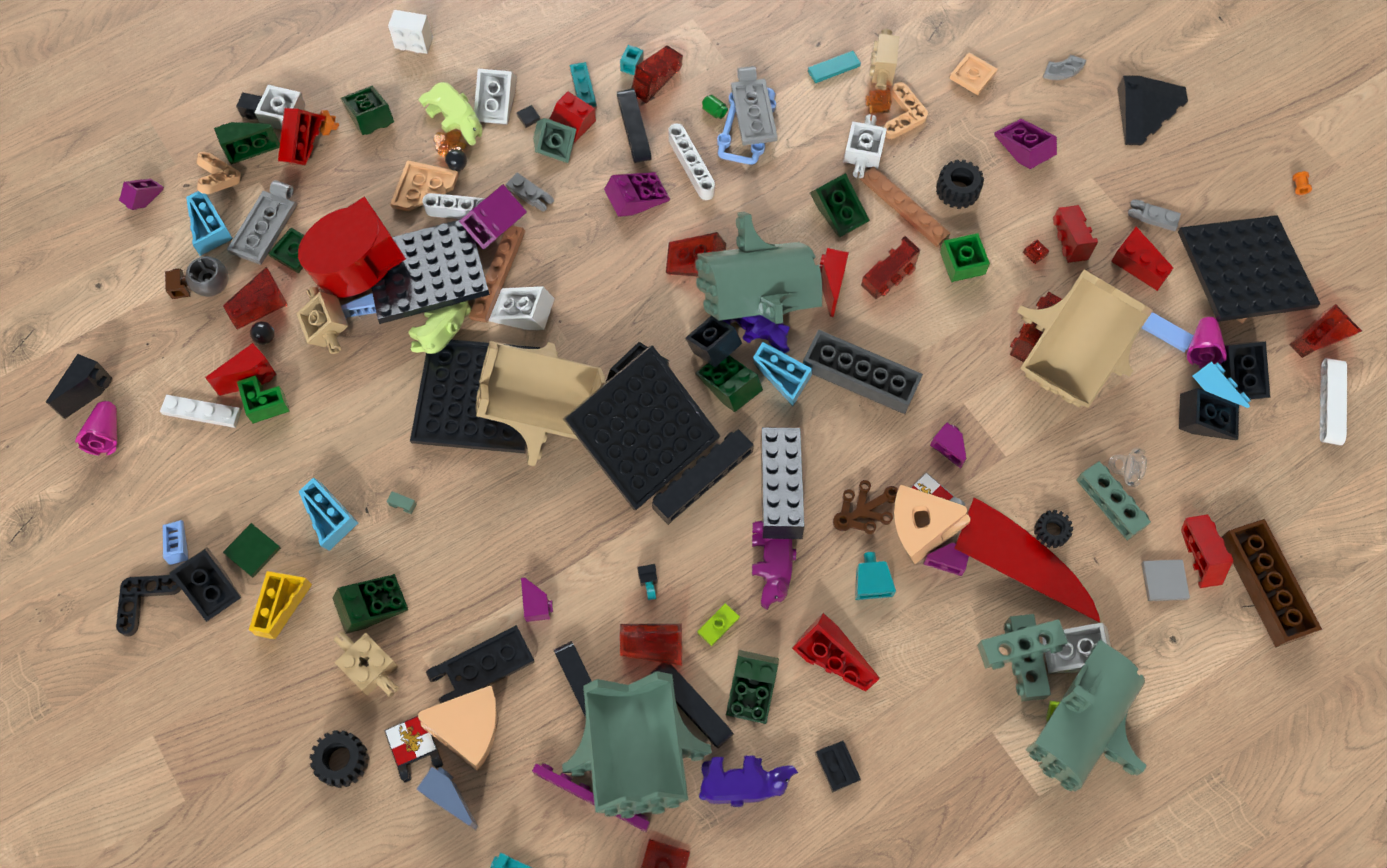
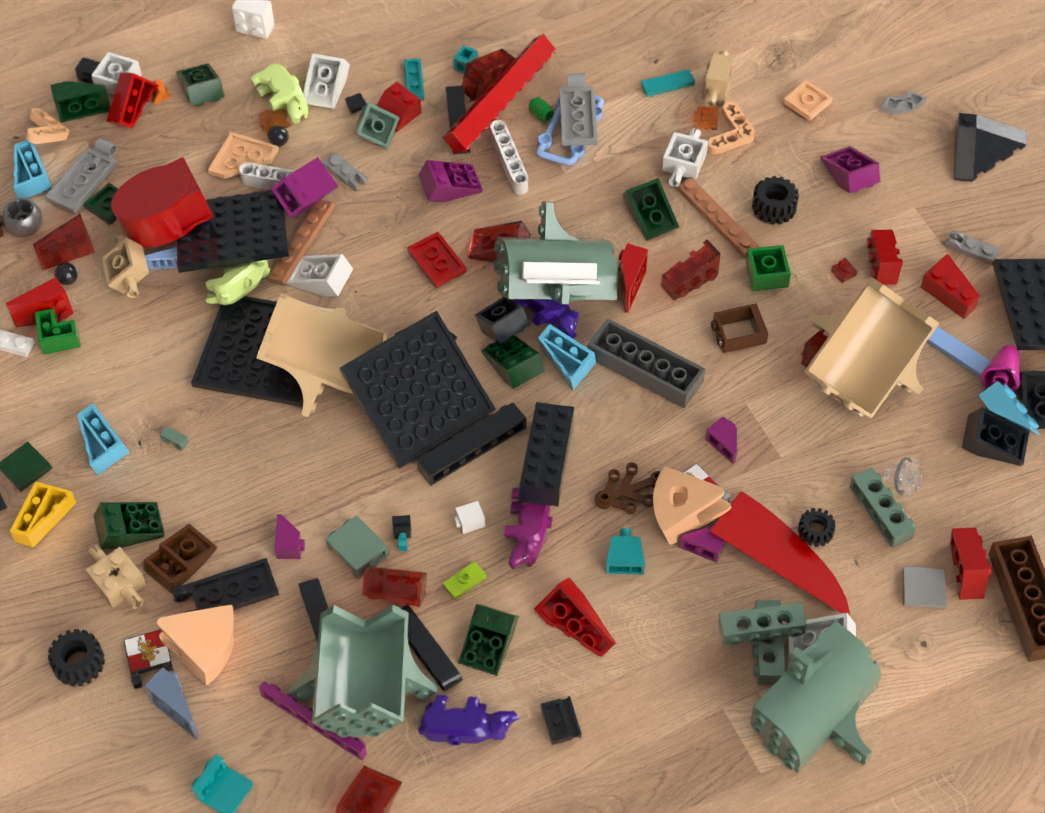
camera: 10 degrees right, 10 degrees down
(427, 634) = (179, 557): none -> reddish brown slope
(606, 601) = (357, 546): none -> sand green panel
(636, 279) = (437, 259): none -> red plate
(672, 96) = (498, 94): none -> brick
(713, 557) = (469, 517): none -> white brick
(767, 290) = (559, 272): none -> white panel
(961, 315) = (735, 315): none -> reddish brown window

